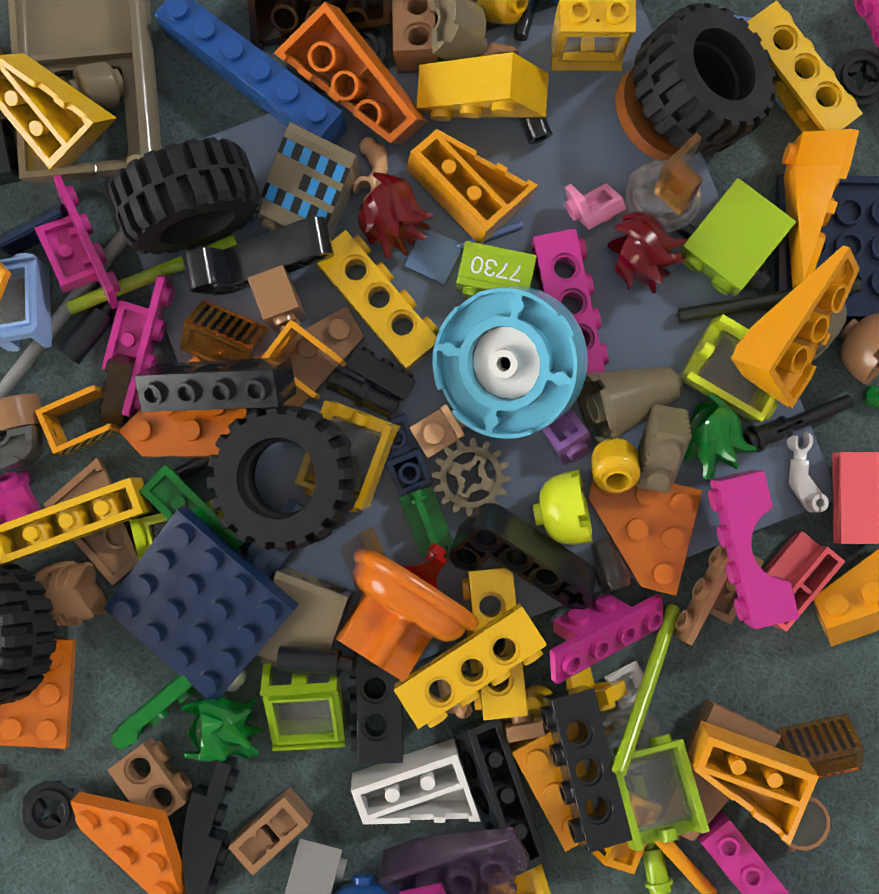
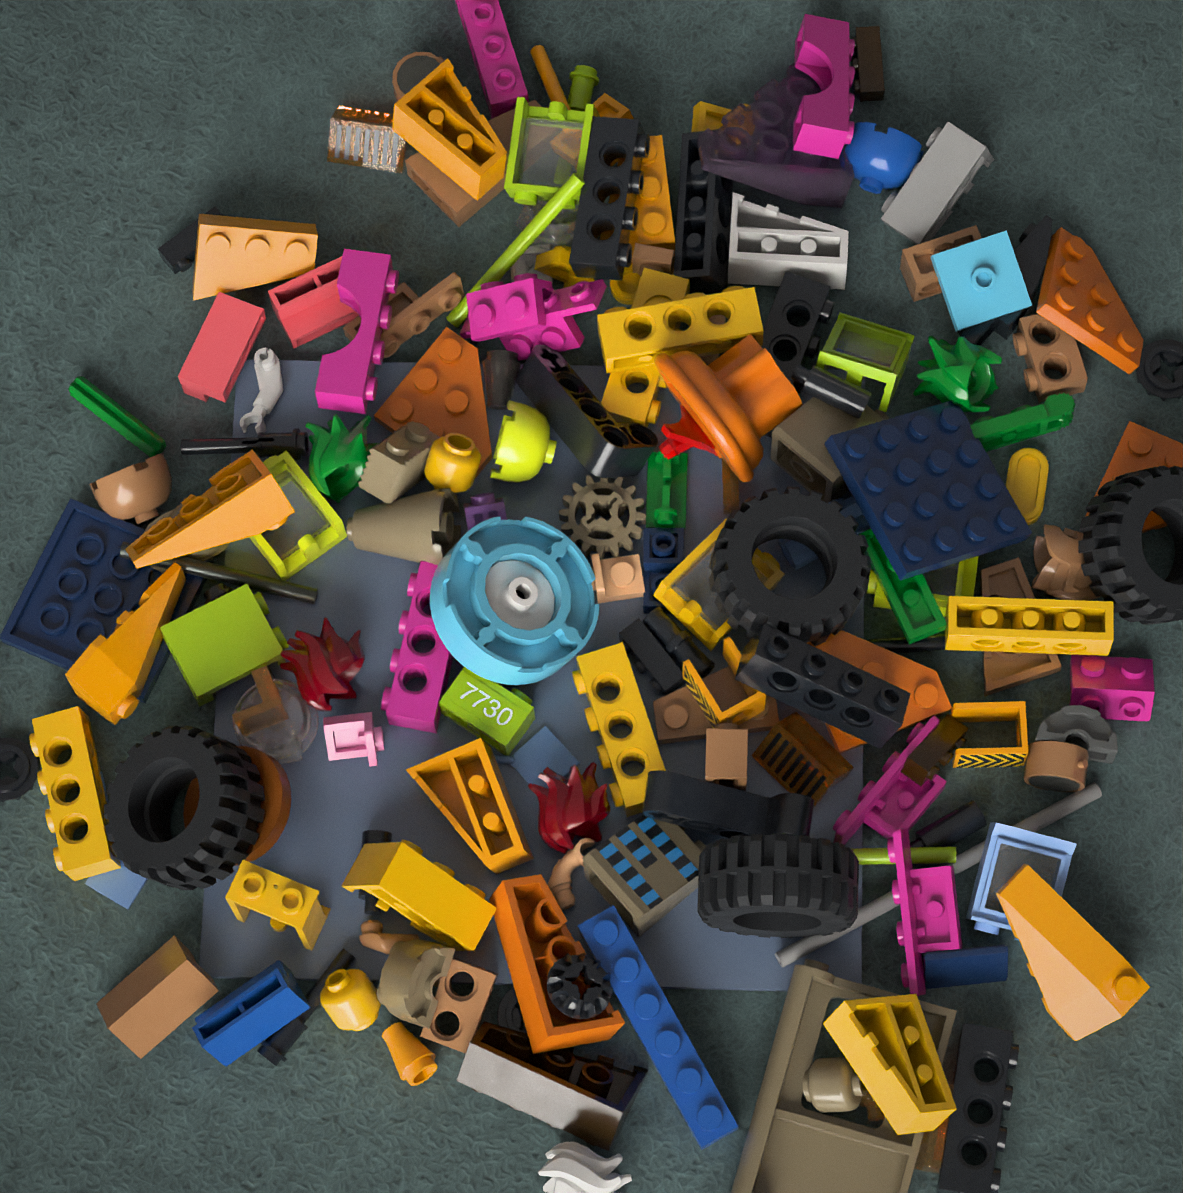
camera: 155 degrees left, 15 degrees down
(132, 659) = (1028, 482): none -> yellow tile
(227, 823) = (981, 280): none -> medium azure plate
(332, 63) = (566, 995): none -> black gear
(630, 626) = (507, 308): none -> dark pink bracket

